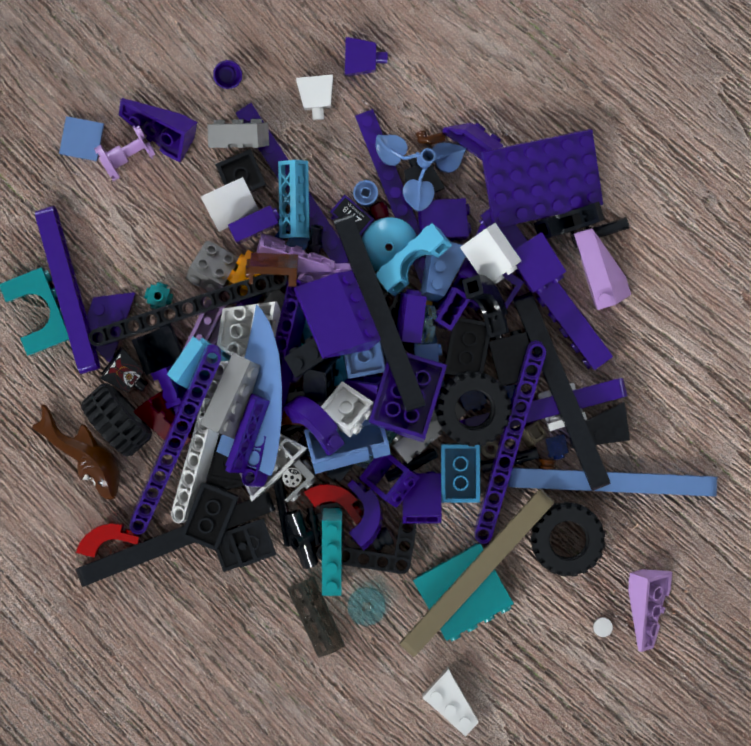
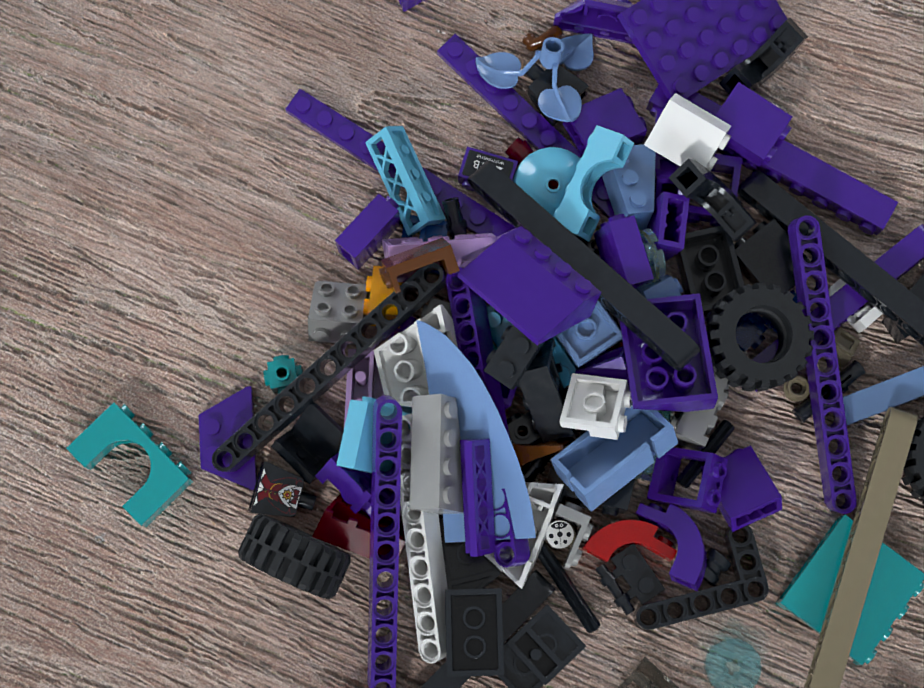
camera: 25 degrees left, 10 degrees down
(67, 289) = (161, 418): dark purple beam -> none
(81, 138) = (102, 222): medium blue tile -> none
(92, 458) = (284, 625): reddish brown piece -> none
(118, 156) = (159, 219): lavender piece -> none
(166, 128) = (204, 164): dark purple wedge -> none
(227, 74) = (256, 65): dark purple hair -> none
(229, 203) = (323, 216): white sticker -> none
(238, 134) = (299, 129): light grey wedge -> none
(241, 166) = (325, 178): black brick -> none
(301, 539) = (607, 613): black piece -> none
(316, 94) = (376, 43): white torso -> none
(316, 419) = (564, 434): dark purple arch -> none
(332, 552) = (670, 633): teal arch -> none
(365, 193) = (493, 134): medium blue wheel -> none
(460, 473) = (775, 432): dark azure brick -> none
(547, 464) = (879, 375): reddish brown bush -> none
(556, 446) = (880, 347): clear blue brick -> none
(603, 275) = (834, 111): lavender wedge -> none
(605, 229) = (795, 69): black pin -> none

